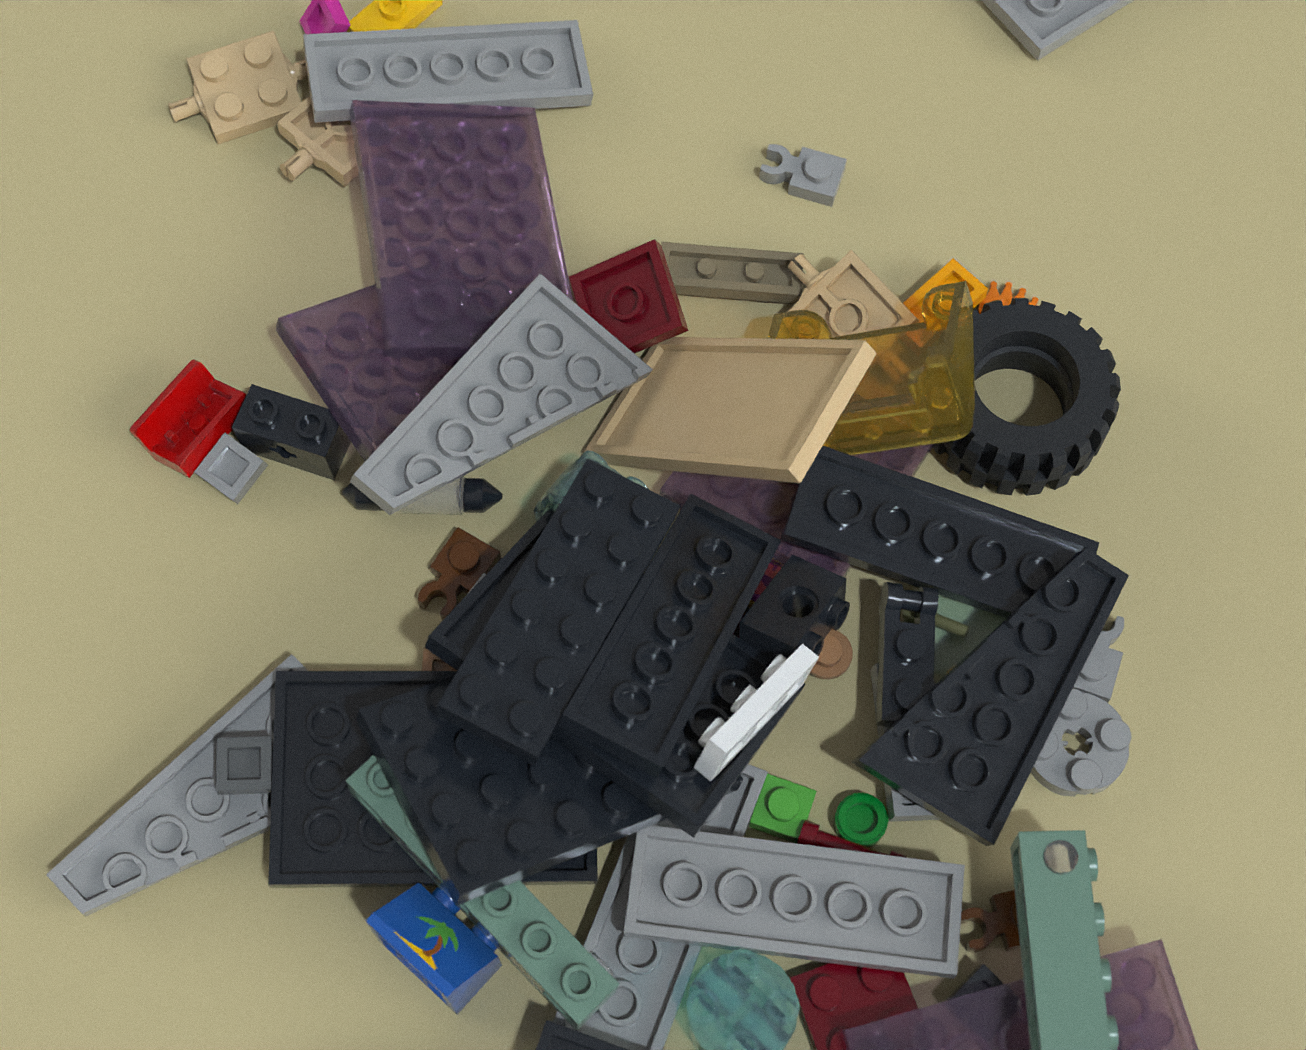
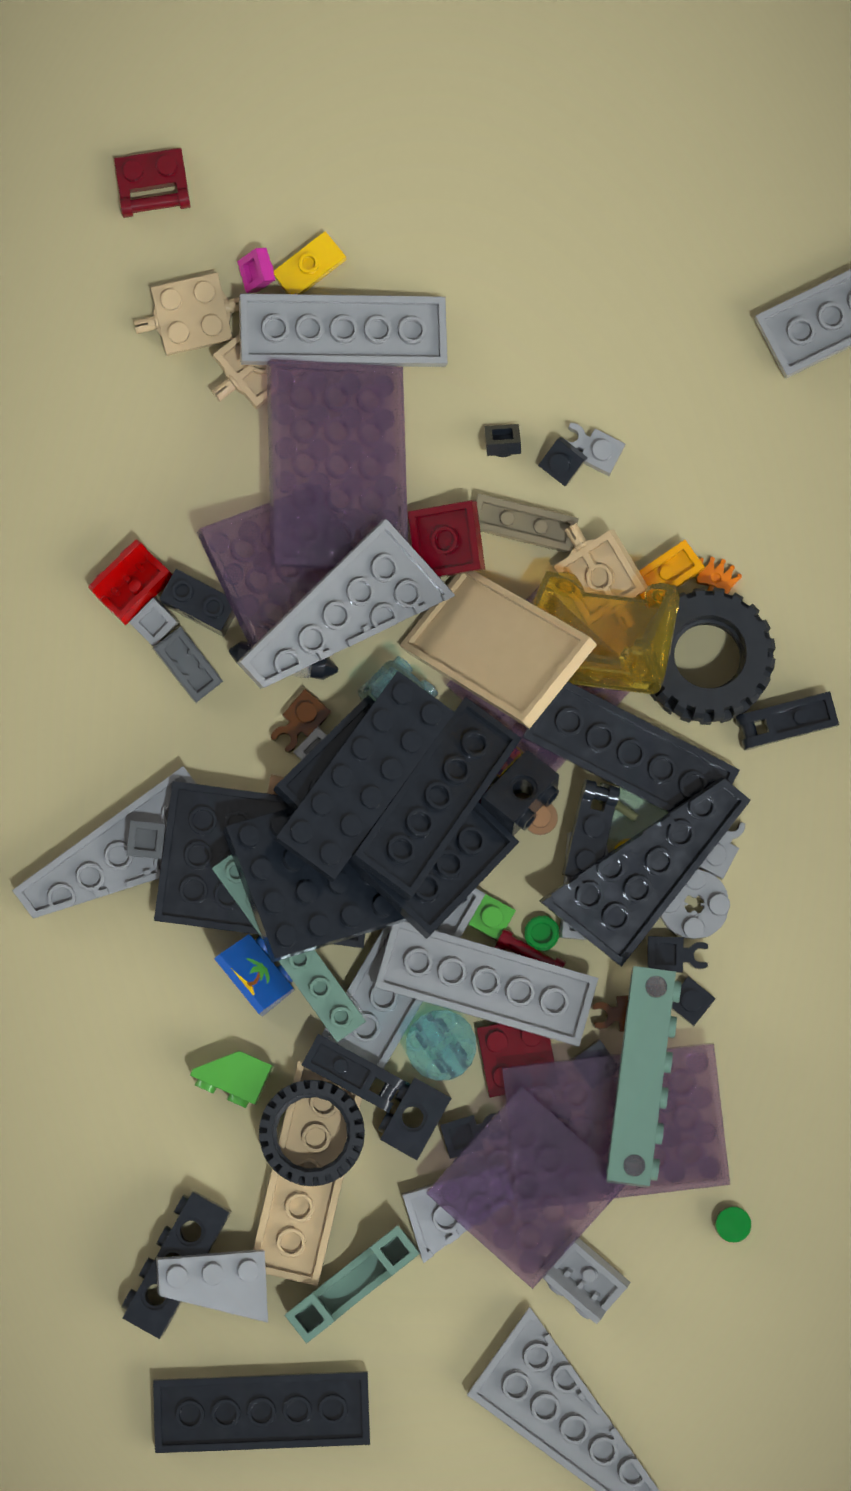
camera: 10 degrees right, 15 degrees up
(285, 518) = (187, 664): none -> dark grey plate
(683, 176) = (502, 440): none -> black plate
(753, 710) = (478, 861): white plate -> none
(768, 190) = (562, 461): none -> black plate
(1060, 812) = (670, 954): none -> black plate
(1113, 887) = (692, 1002): none -> black plate
(1148, 470) = (788, 720): none -> black plate

